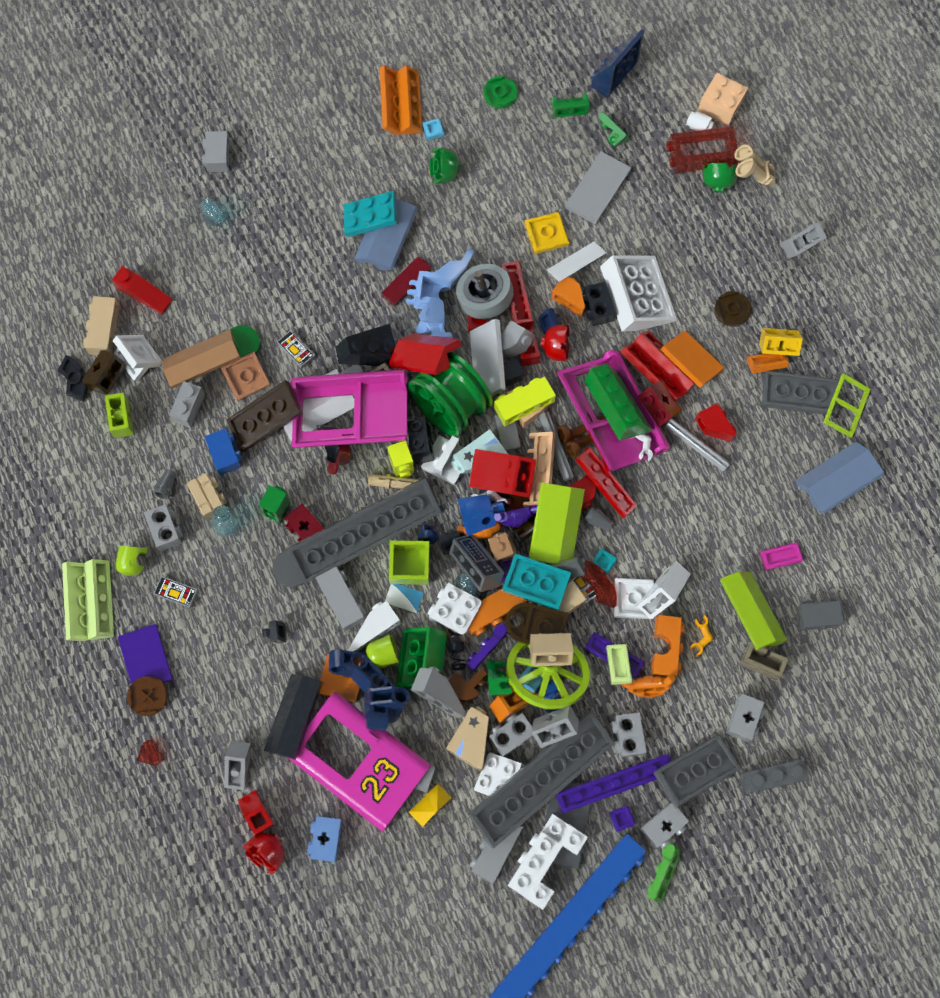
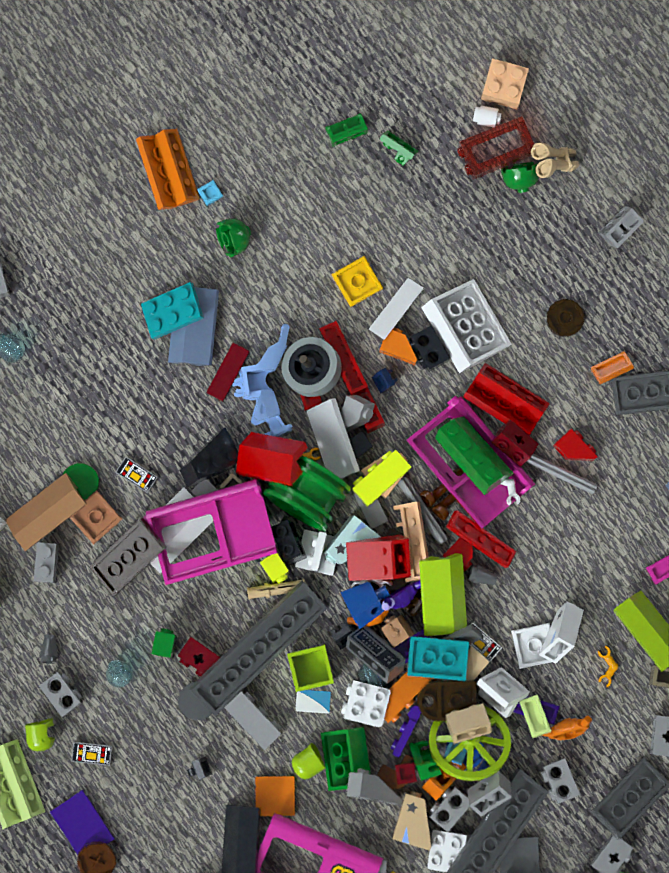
camera: 15 degrees left, 10 degrees up
(206, 495) = (94, 651): tan brick -> none
(223, 452) = (96, 602): blue brick -> none
(337, 454) = (208, 580): hair -> none
(378, 623) = (294, 736): white slope -> none
(382, 702) = (320, 813): dark blue connector -> none
(427, 535) = (321, 636): dark blue tile -> none
(456, 647) = (375, 738): black piece -> none
(476, 685) = (406, 773): none -> dark red tile
(498, 97) = (264, 134): green tile -> none
(556, 342) = (397, 404): red cylinder -> none
(591, 631) = (502, 691): none -> white bracket
(598, 187) = (398, 217): light grey tile -> none
(600, 583) = (499, 640): clear red tile -> none
(604, 560) = (497, 616): teal tile -> none
(610, 784) = (554, 831): dark purple tile -> none
(617, 65) = (384, 74): dark blue slope -> none
(622, 818) = (571, 859): dark purple tile -> none
(668, 629) = (581, 703): orange arch -> none
(692, 359) = (536, 385): orange tile -> none
(780, 341) = (620, 345): yellow brick -> none

